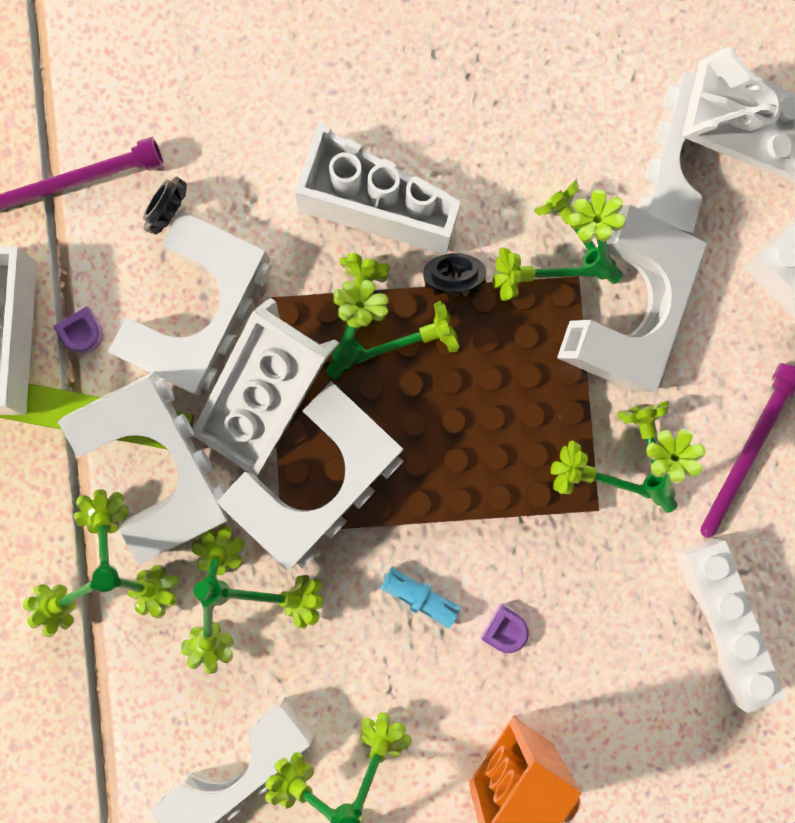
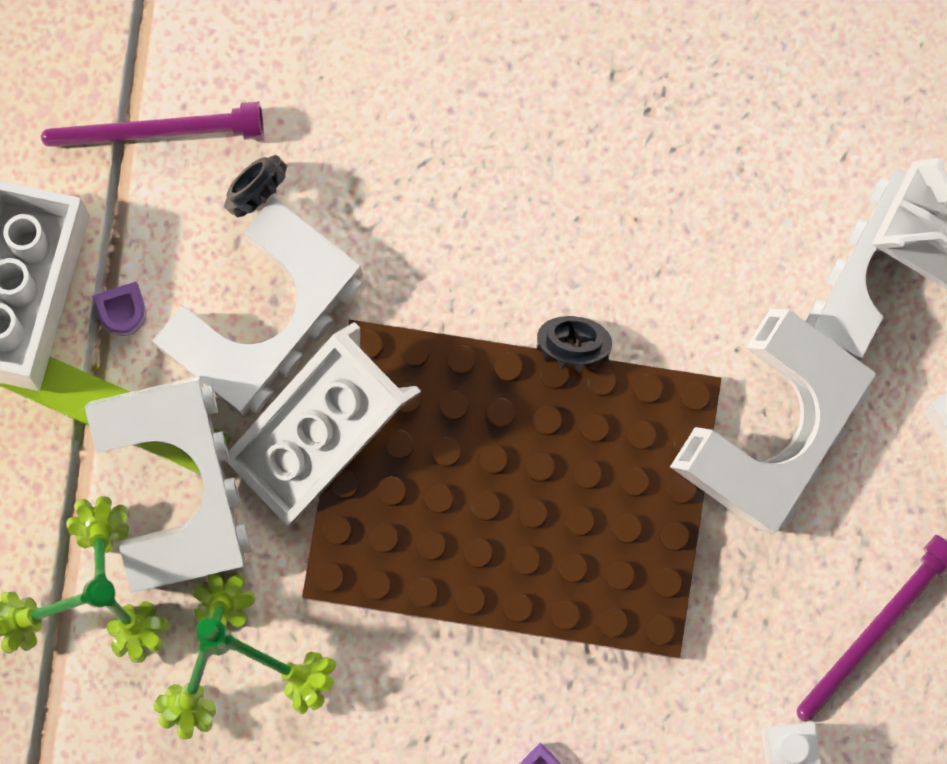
camera: 15 degrees right, 5 degrees down
(292, 532) = (318, 596): white arch -> none
(360, 306) = (454, 355): lime plant -> none
(372, 195) = (500, 229): white wedge -> none
(420, 597) = (446, 711): medium azure pin -> none
(589, 222) = (735, 319): lime plant -> none
(667, 457) = (762, 602): lime plant -> none

